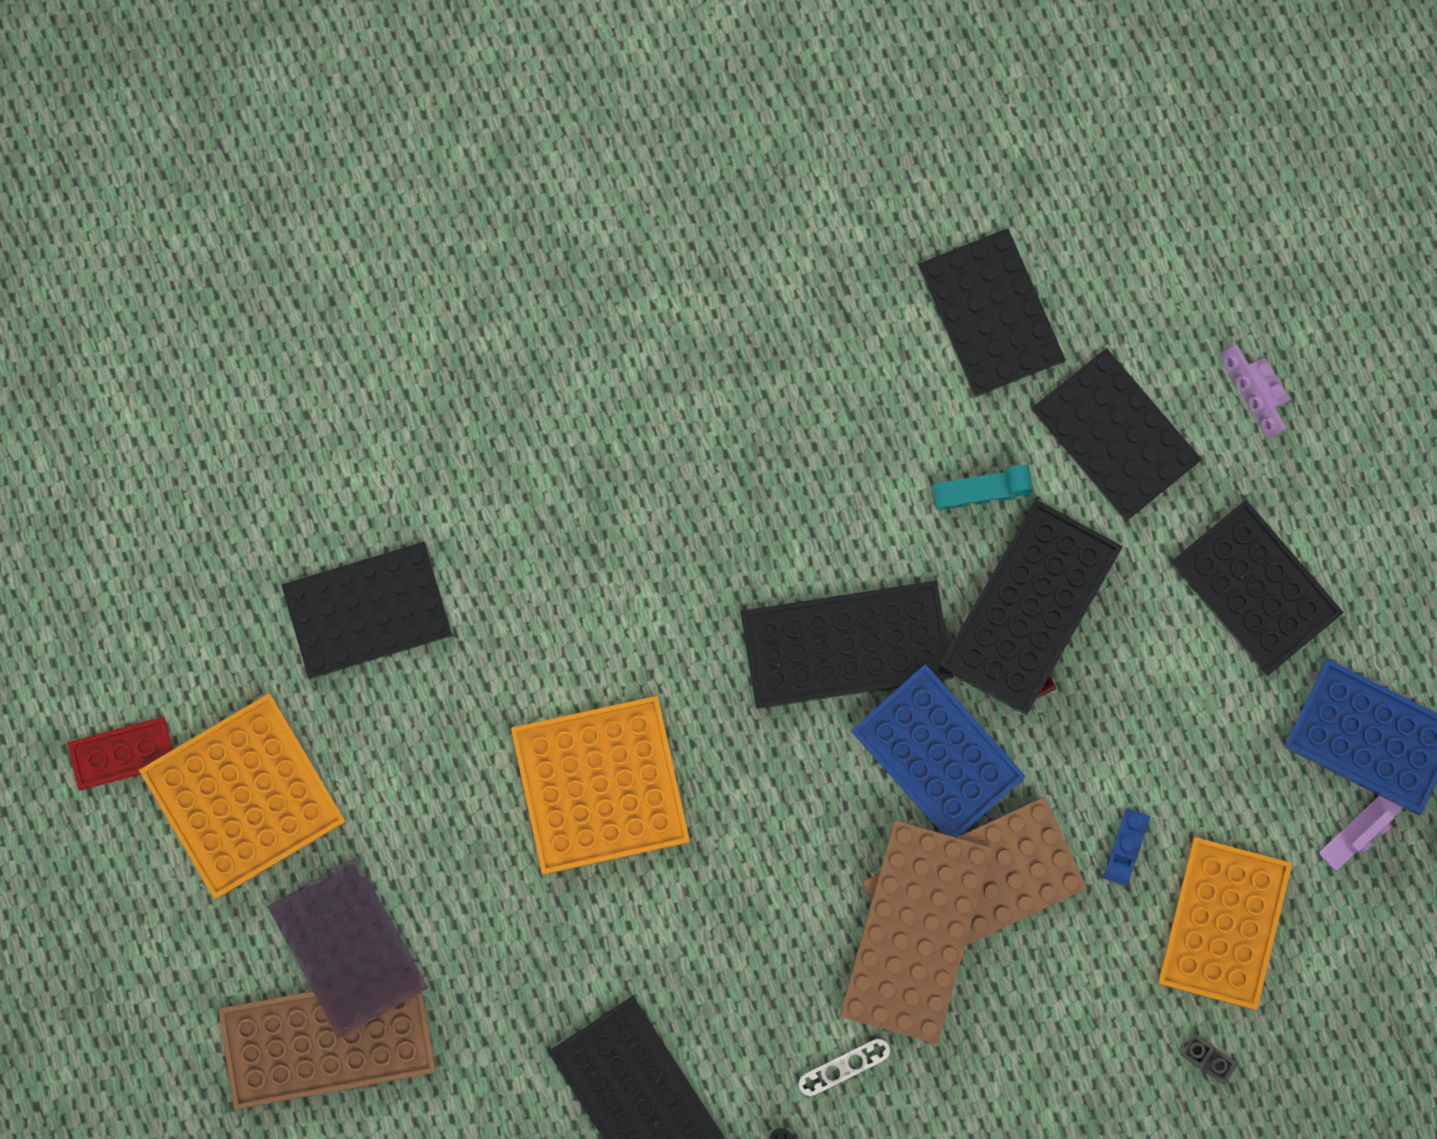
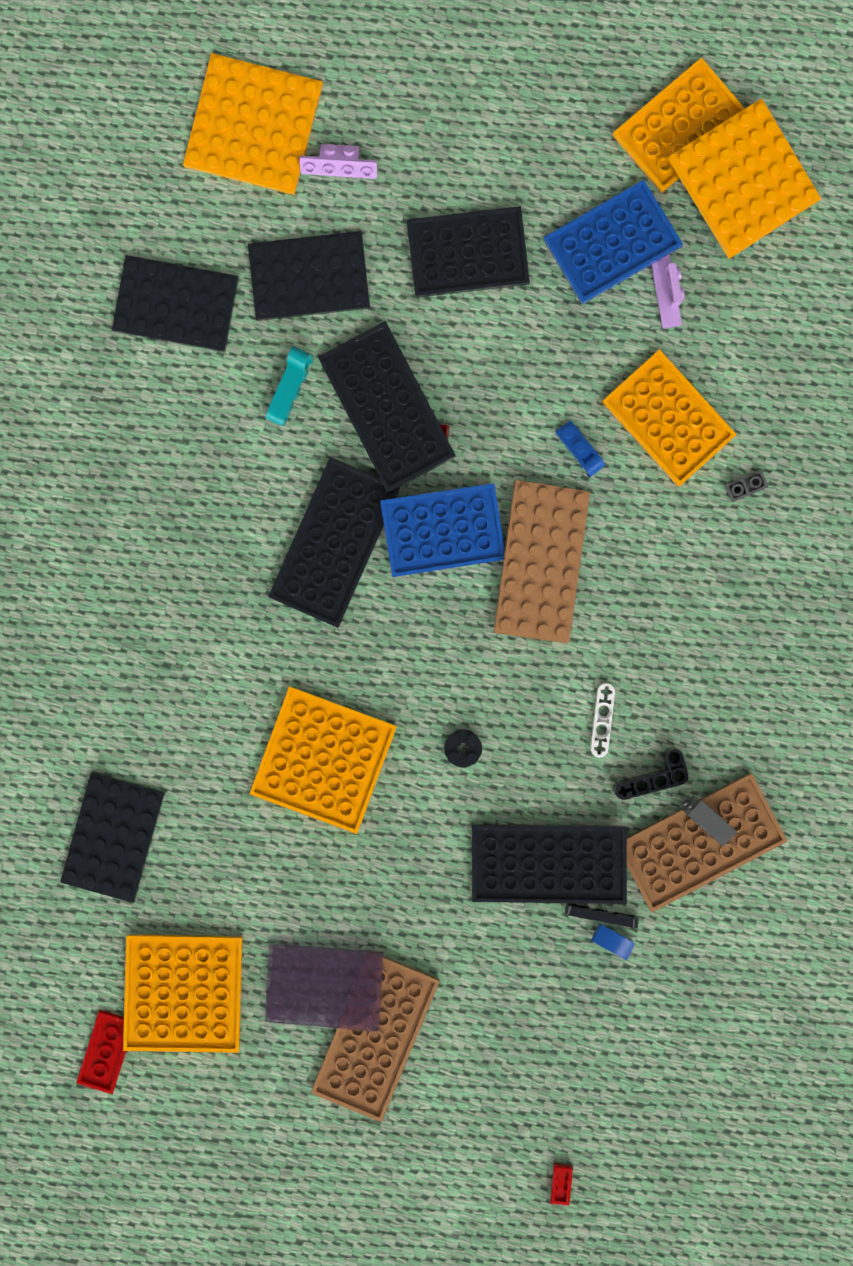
camera: 55 degrees left, 10 degrees up
(707, 945) = (471, 756): none -> black plate
(915, 932) = (548, 619): medium nougat plate -> none
(1237, 273) = (252, 123): none -> light orange plate

